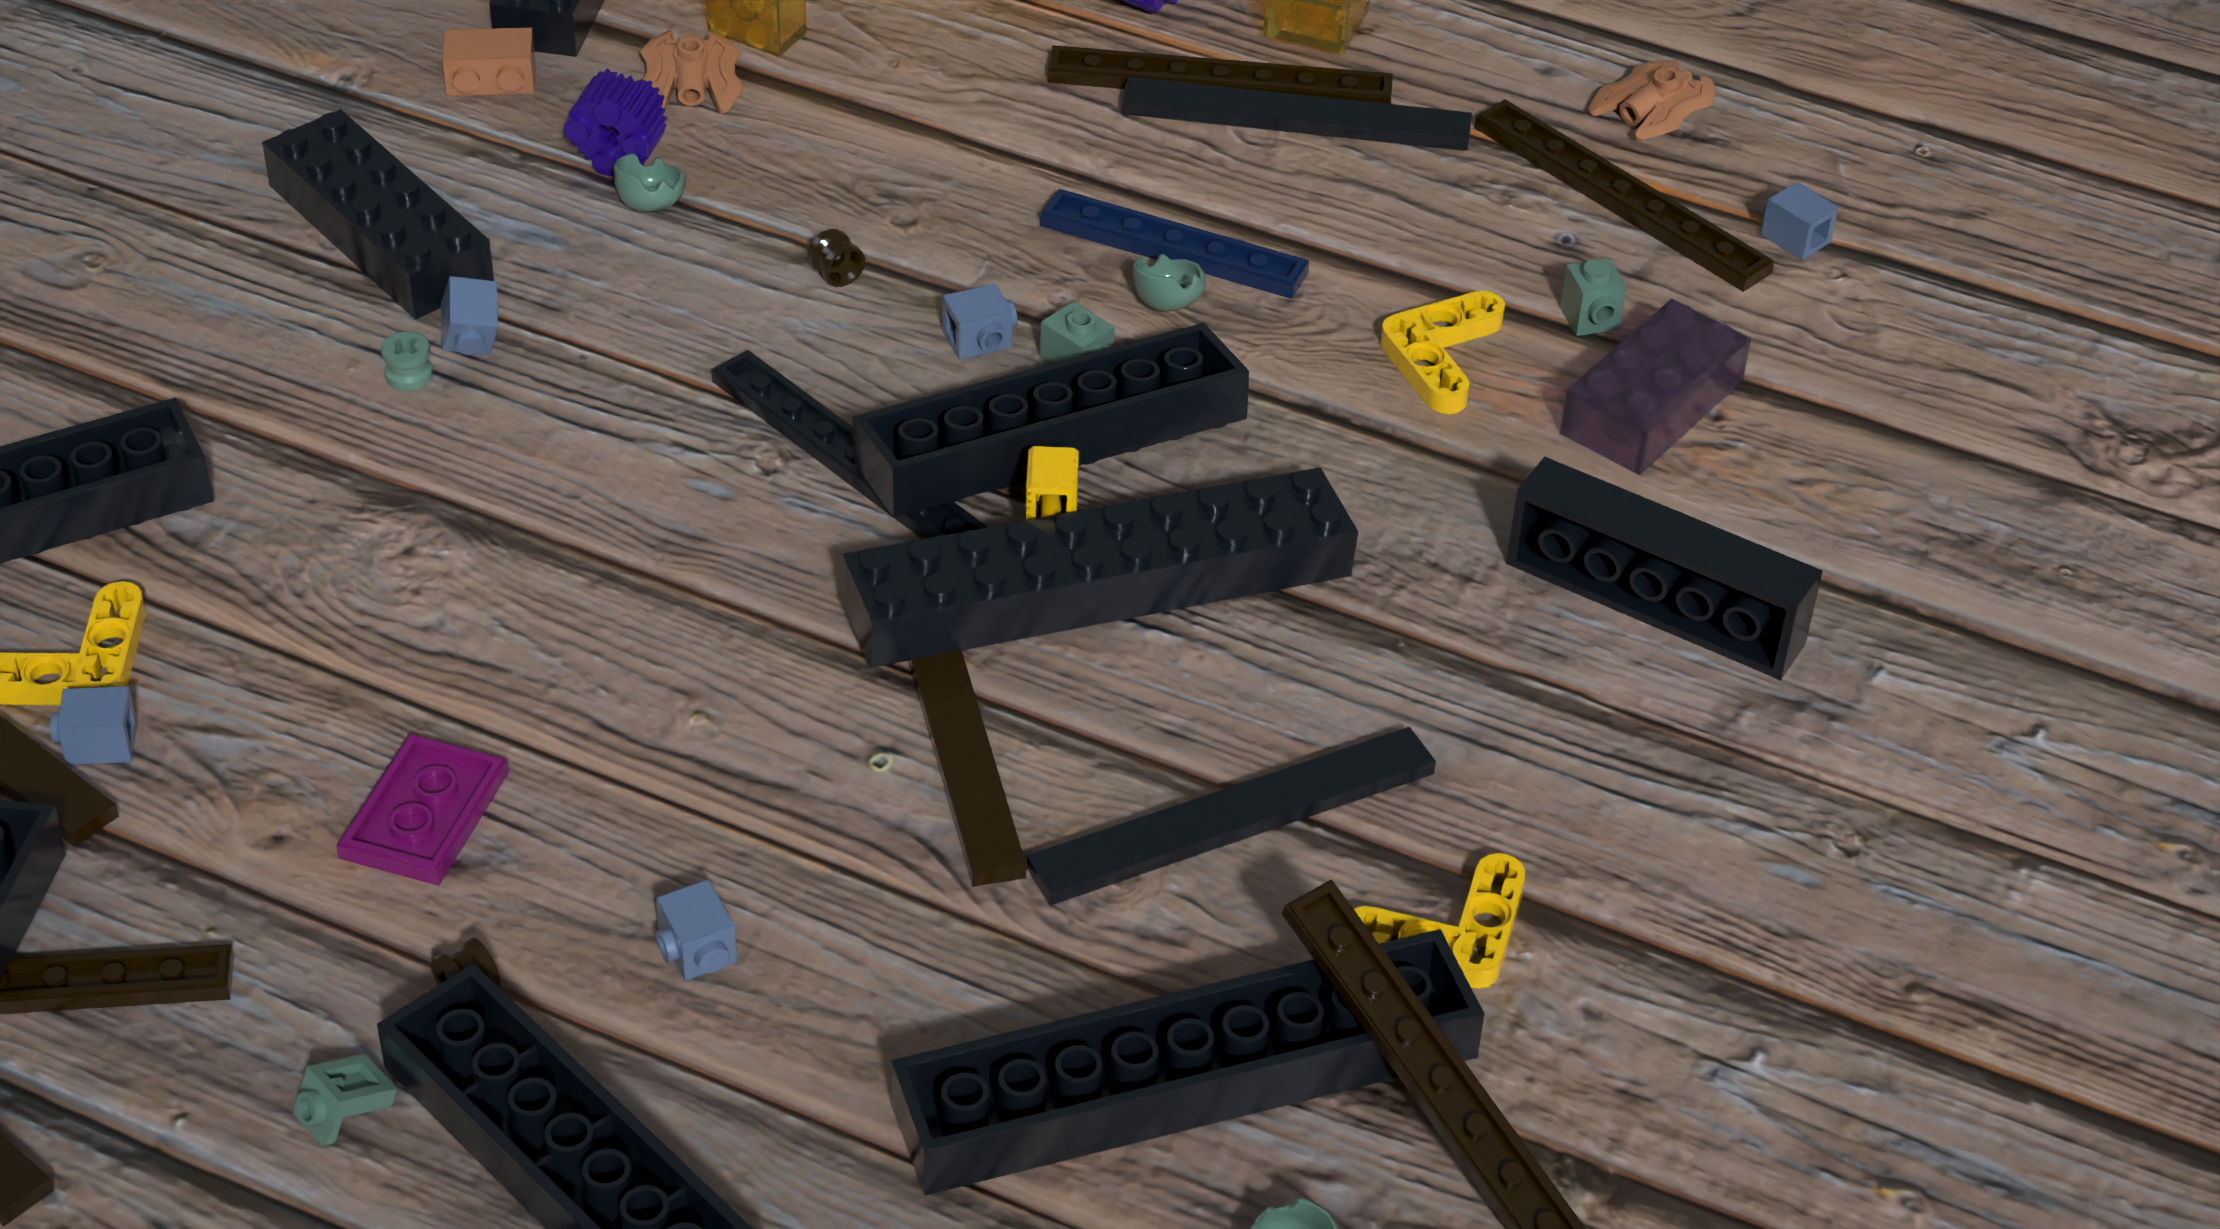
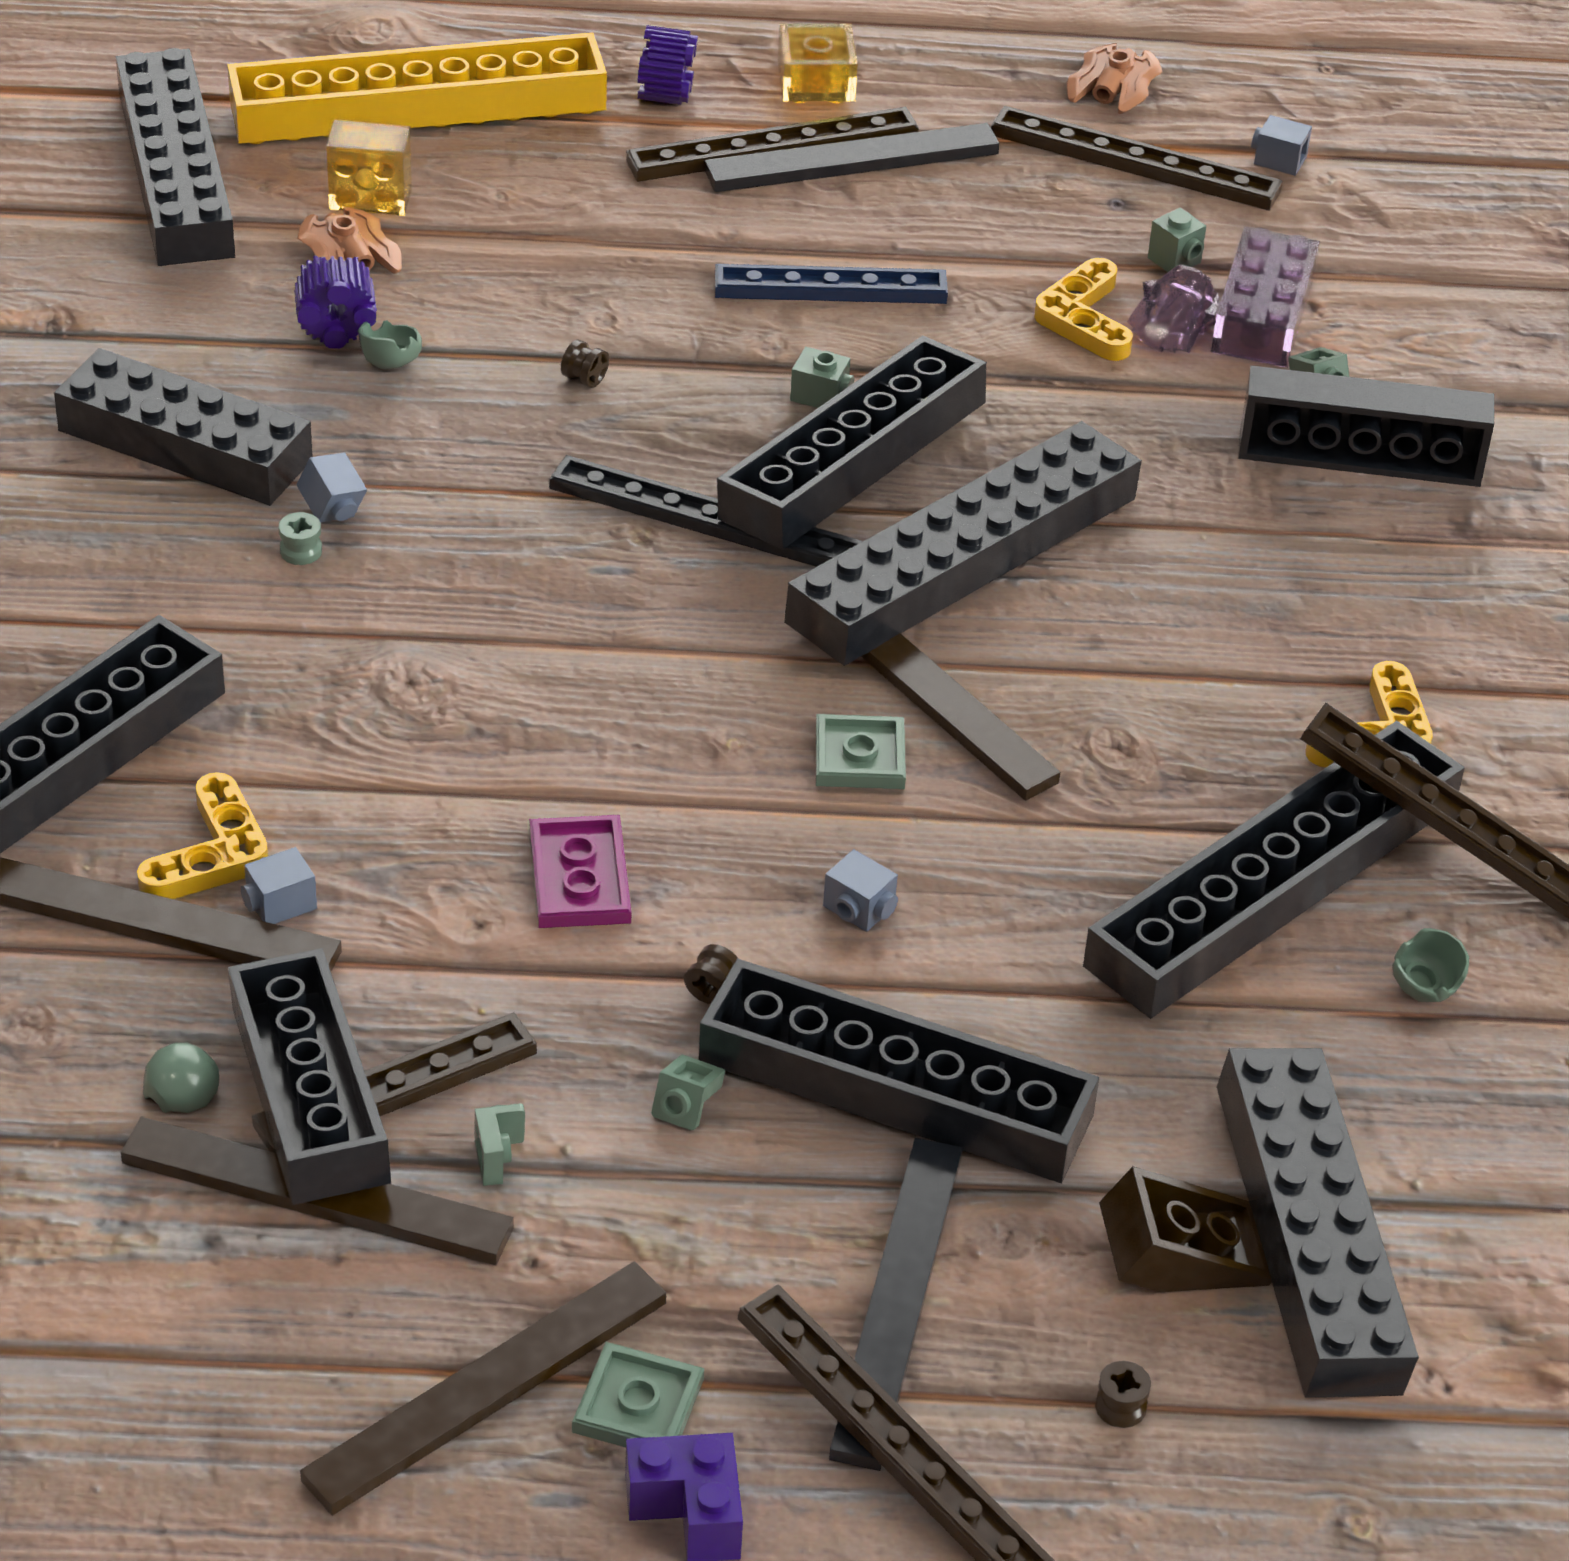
camera: 25 degrees left, 0 degrees up
(90, 1077) = (493, 1134): none -> sand green bracket
(489, 61) = (176, 278): nougat brick -> none
(824, 771) = (860, 751): none -> sand green tile
(978, 321) = (732, 383): sand blue brick -> none
(1051, 481) = (899, 490): yellow brick -> none
(1168, 282) = (857, 314): sand green hair -> none
(1229, 815) = (1173, 694): black tile -> none
(1533, 372) = (1175, 310): none -> hair
(1669, 484) = (1320, 361): none -> sand green bracket

